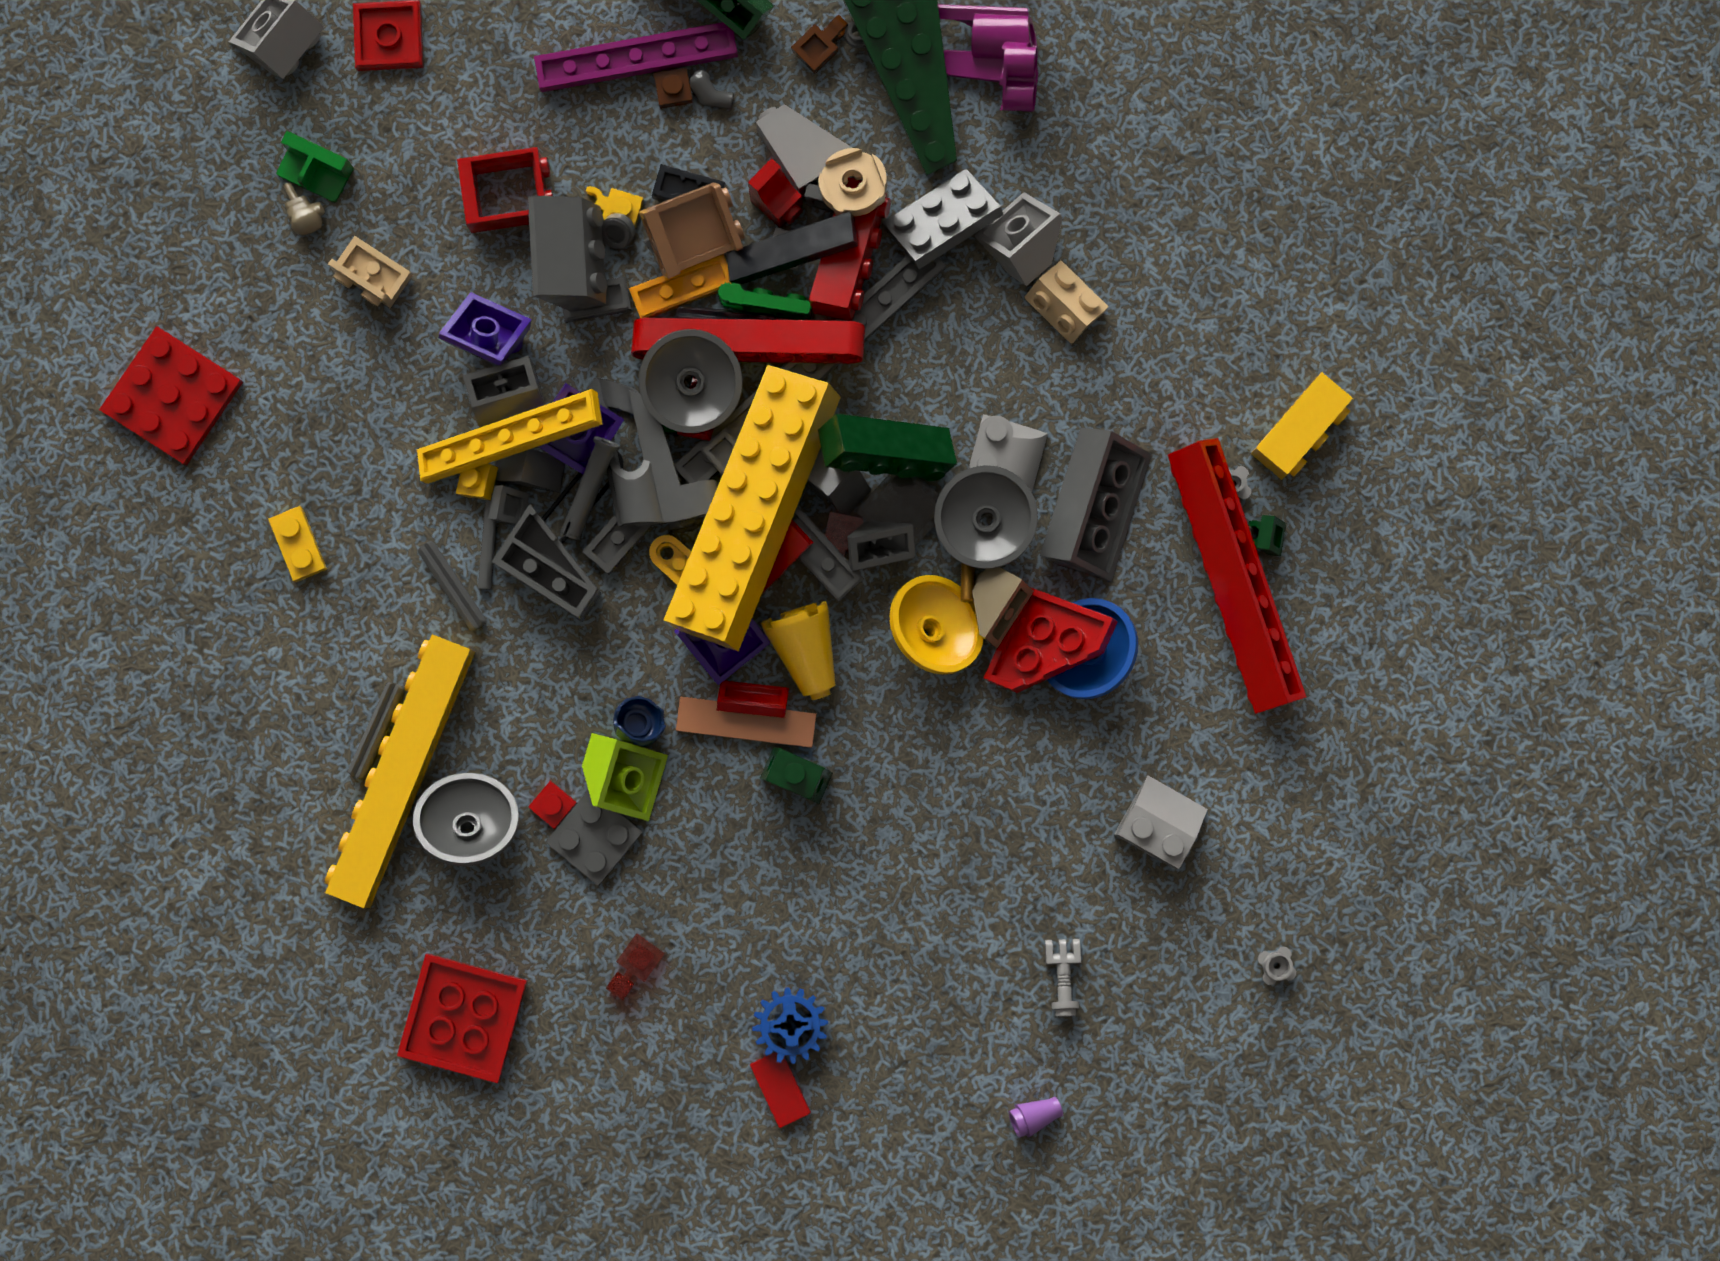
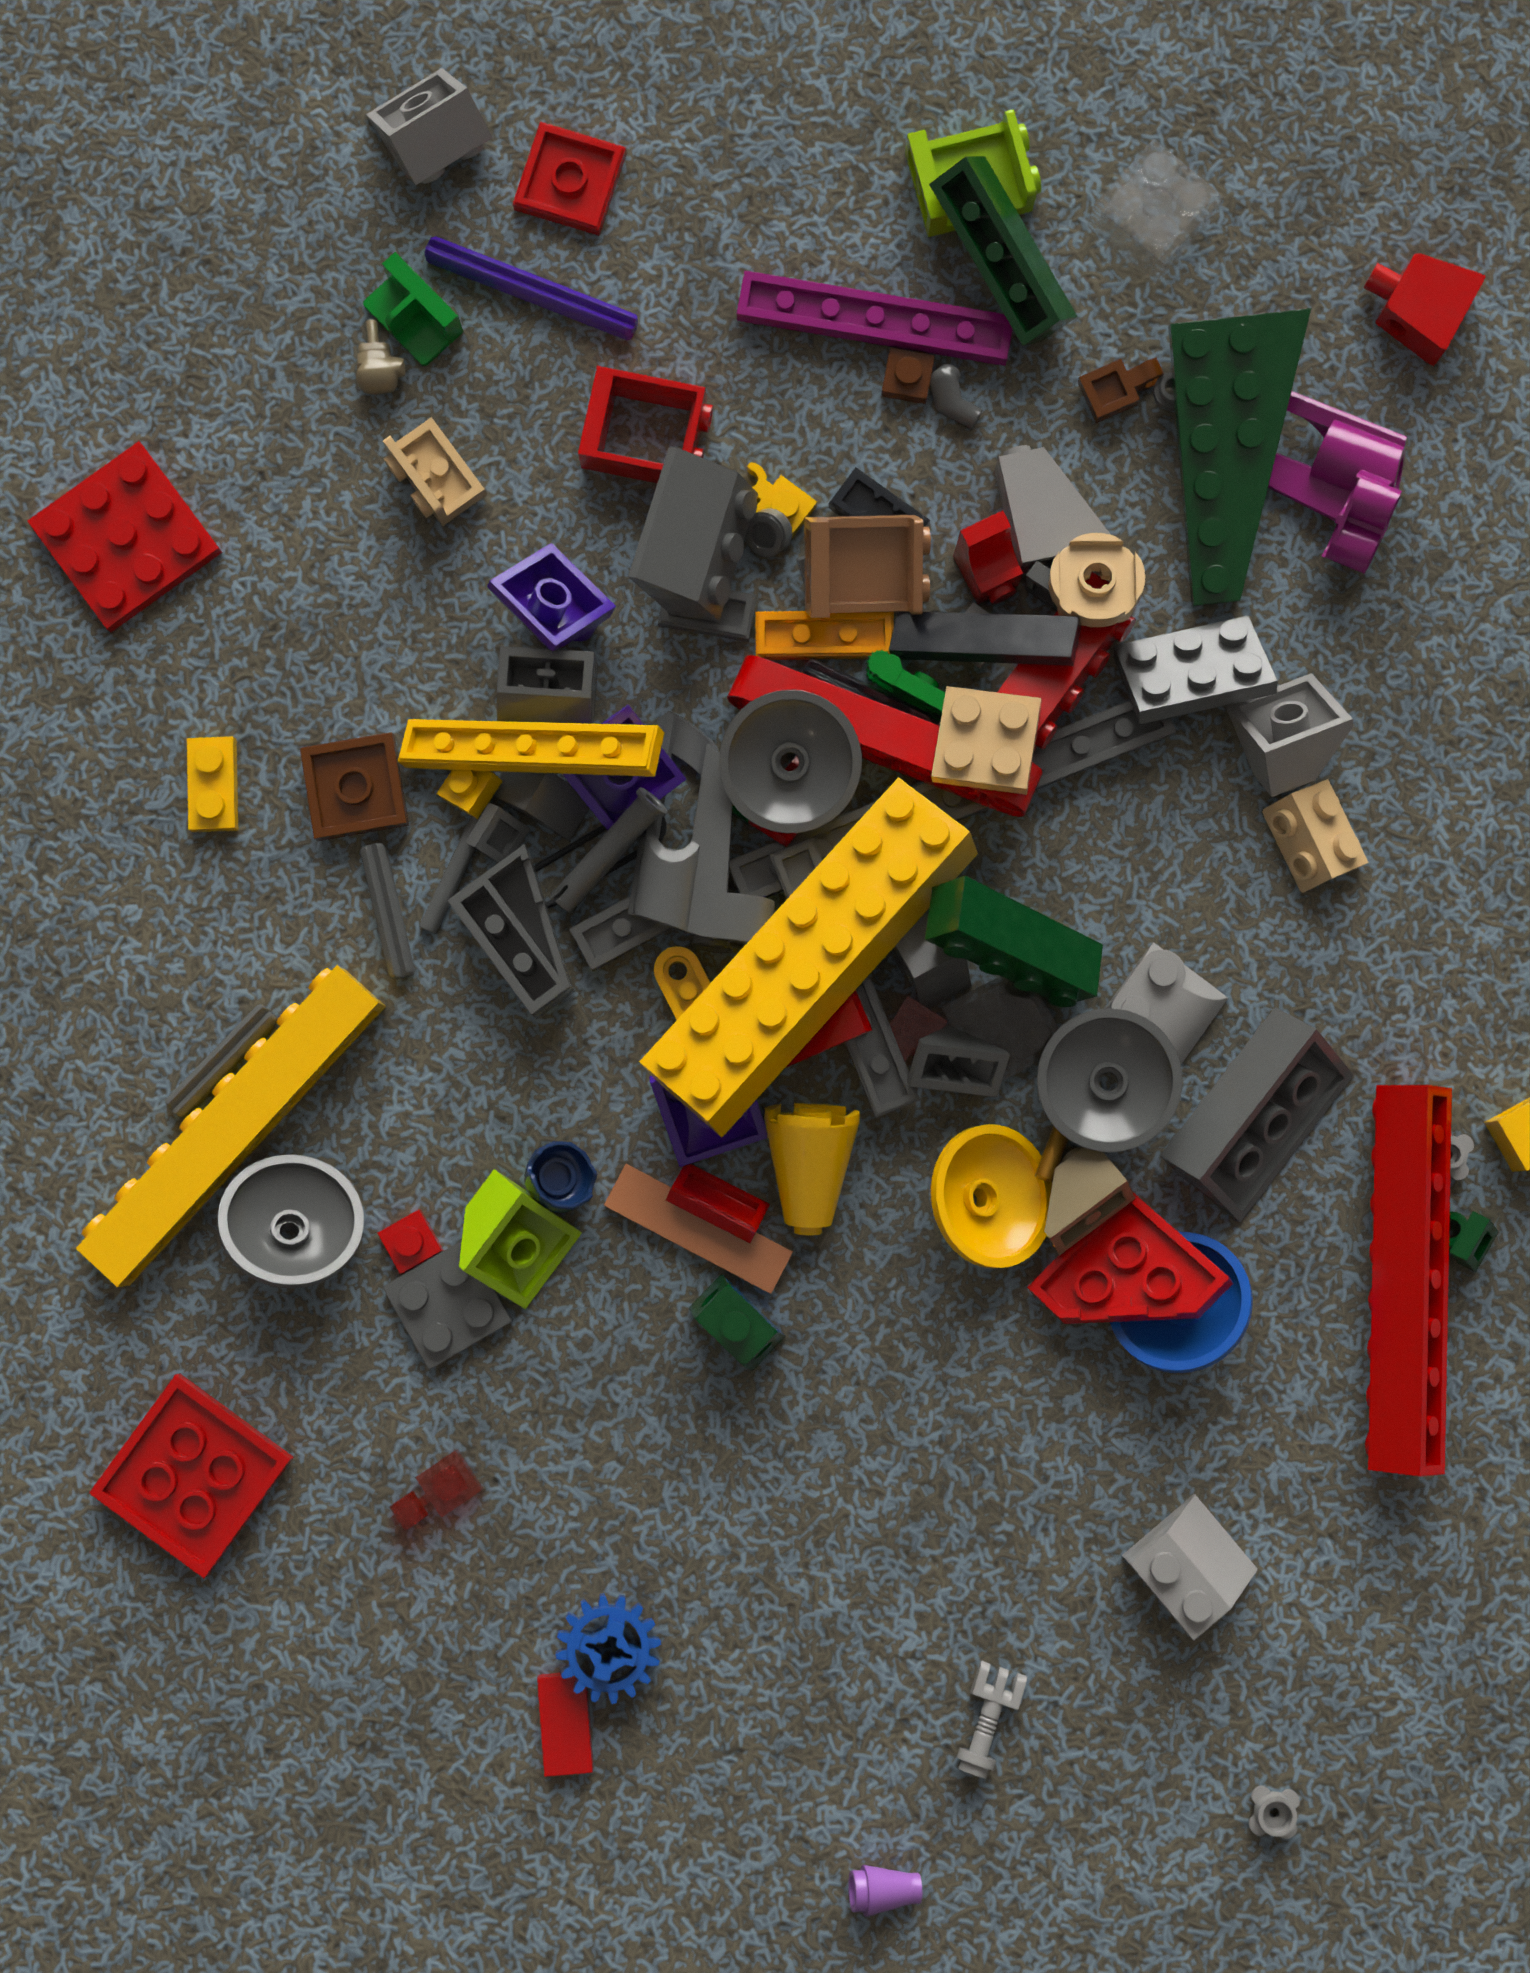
camera: 25 degrees right, 0 degrees up
(389, 121) = (531, 288): none -> dark purple axle
(397, 509) = (354, 786): none -> reddish brown plate
(818, 318) = (986, 740): none -> tan plate

